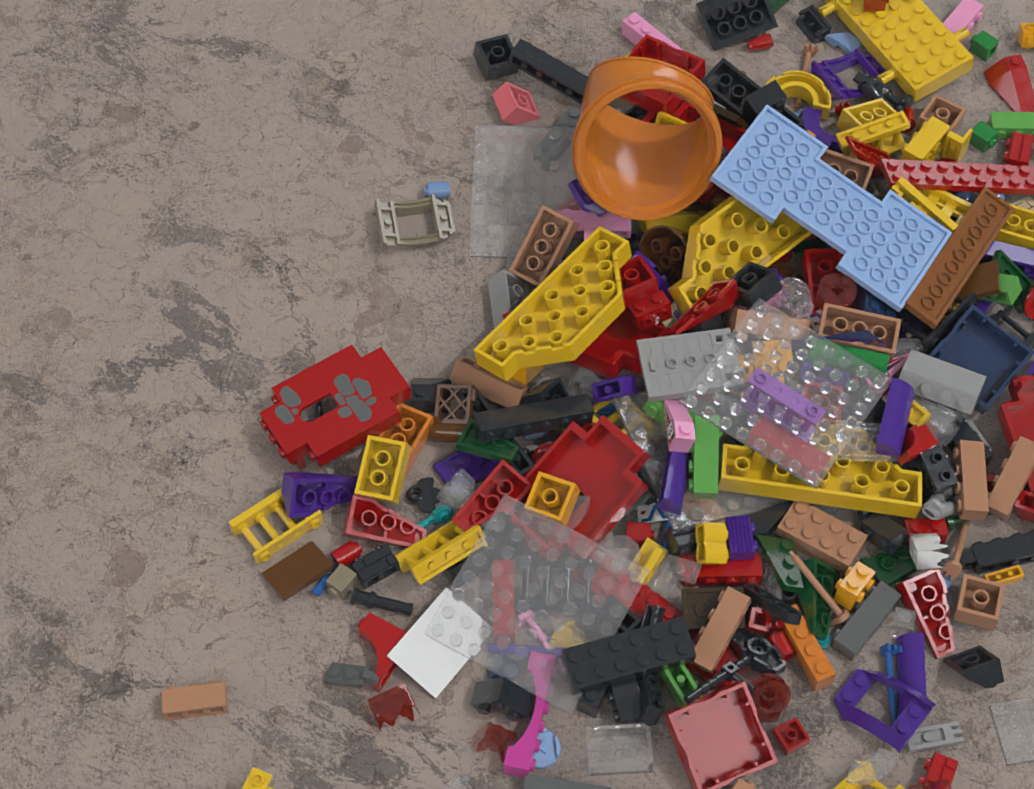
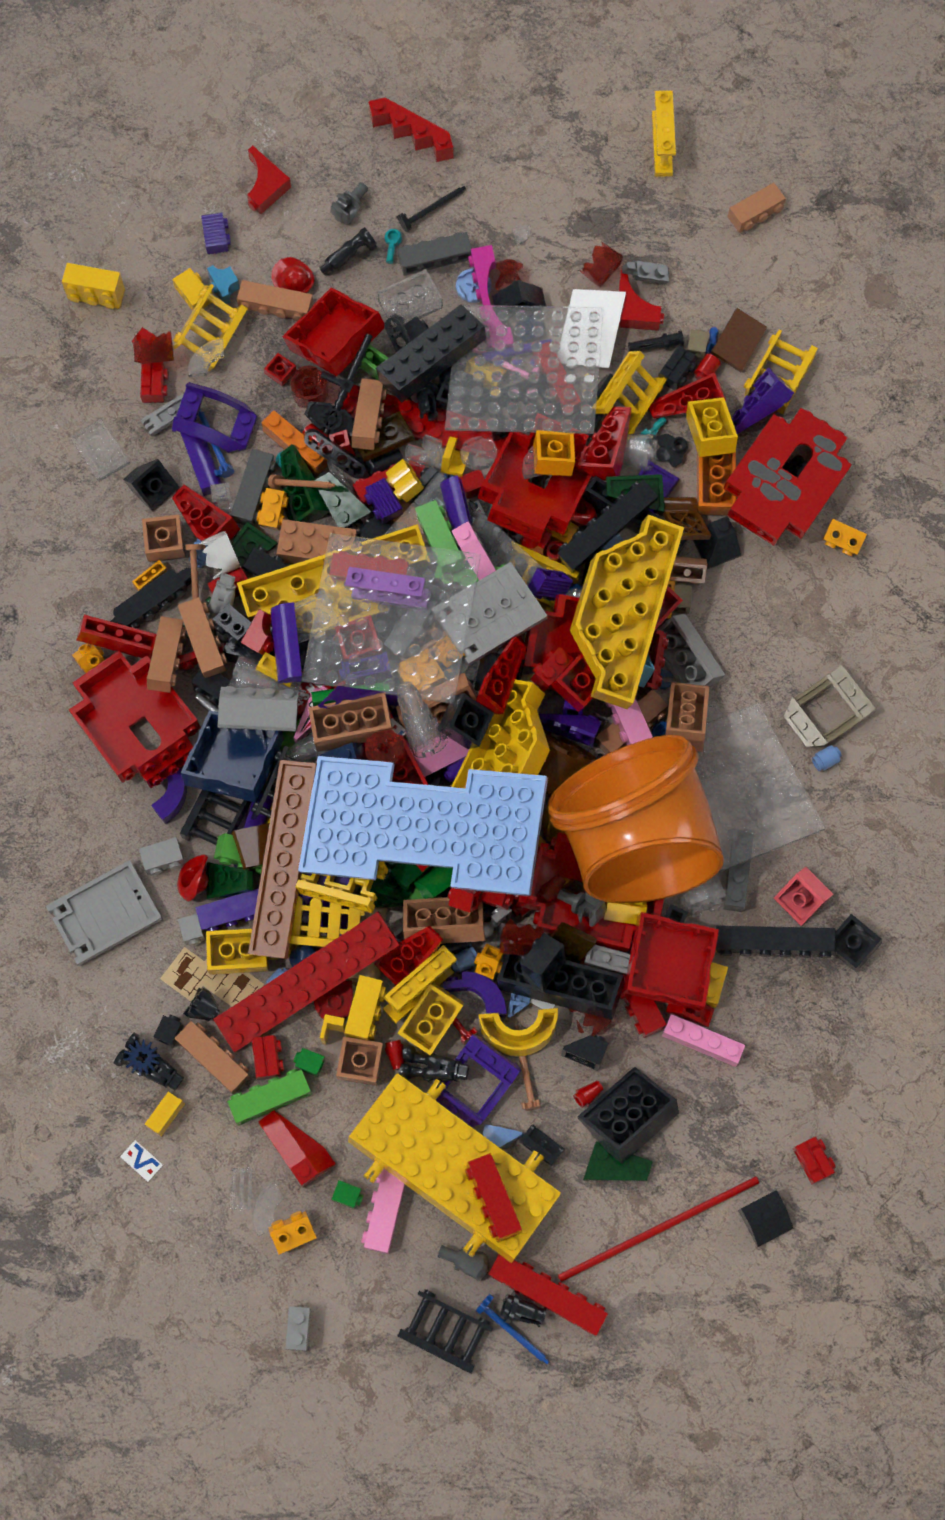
camera: 155 degrees right, 15 degrees up
(311, 346) = (845, 534): none -> light orange brick
(752, 59) = (586, 1051): none -> black slope

